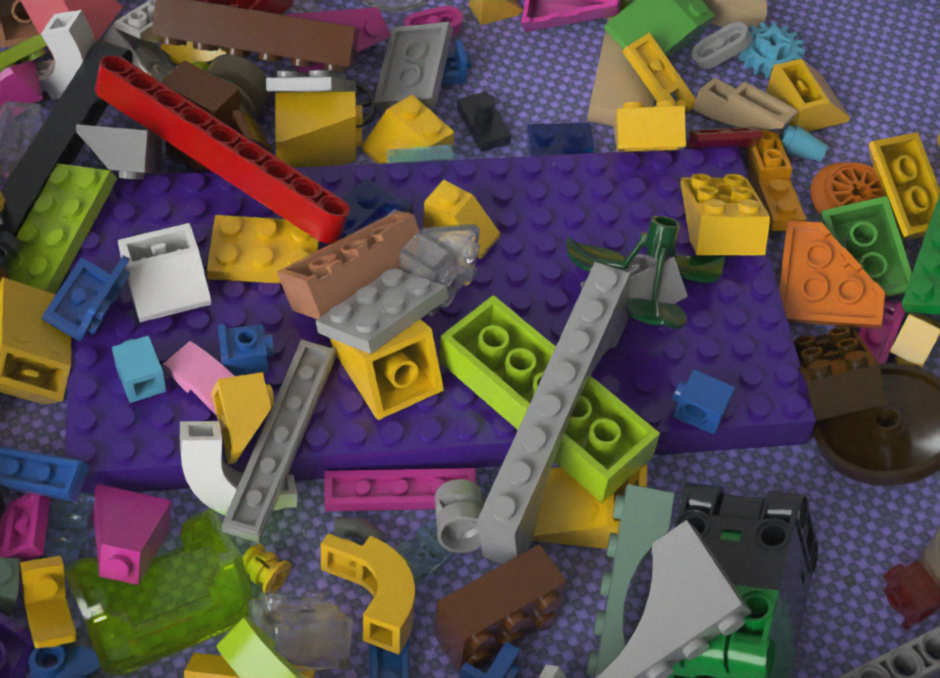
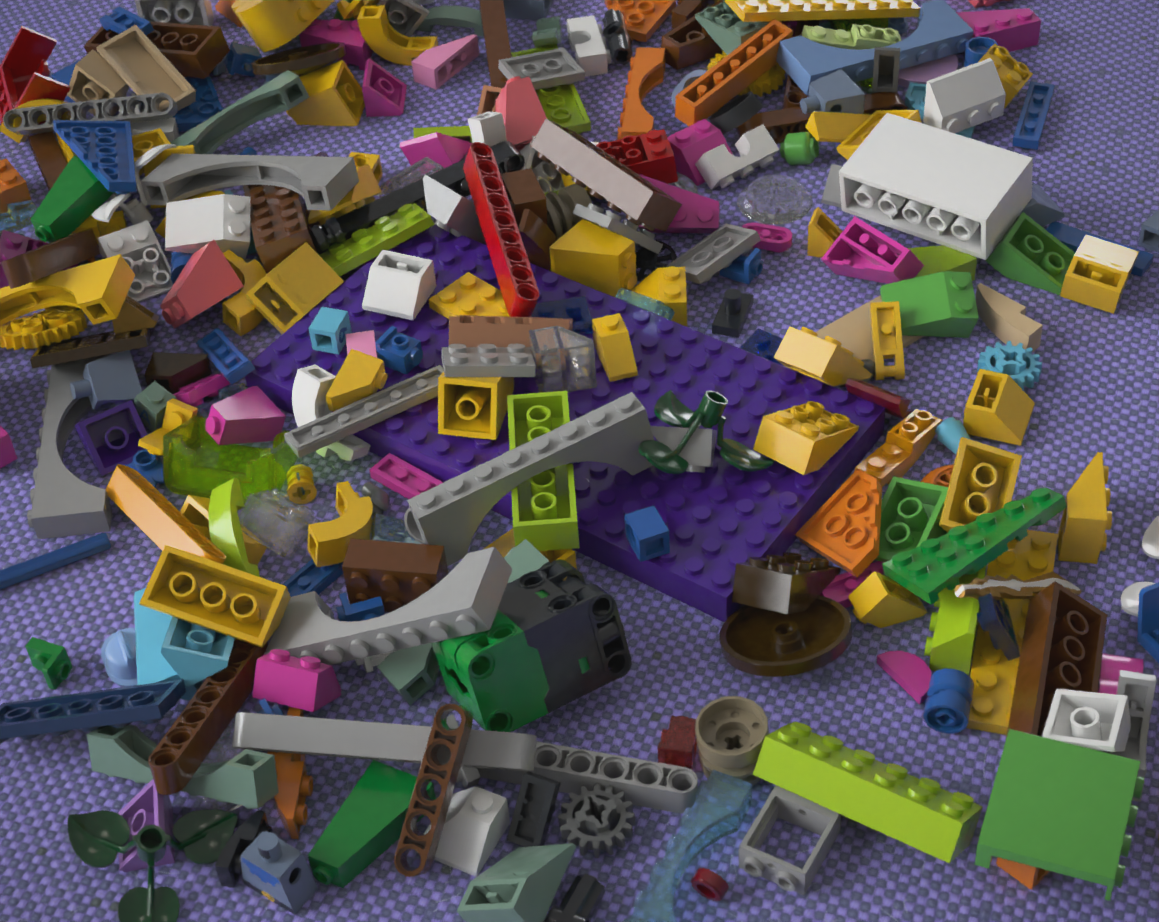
camera: 50 degrees right, 10 degrees down
(86, 298) = (341, 278): blue bracket -> none
(721, 45) = (965, 343): light grey plate -> none
(743, 106) = (930, 387): tan slope -> none

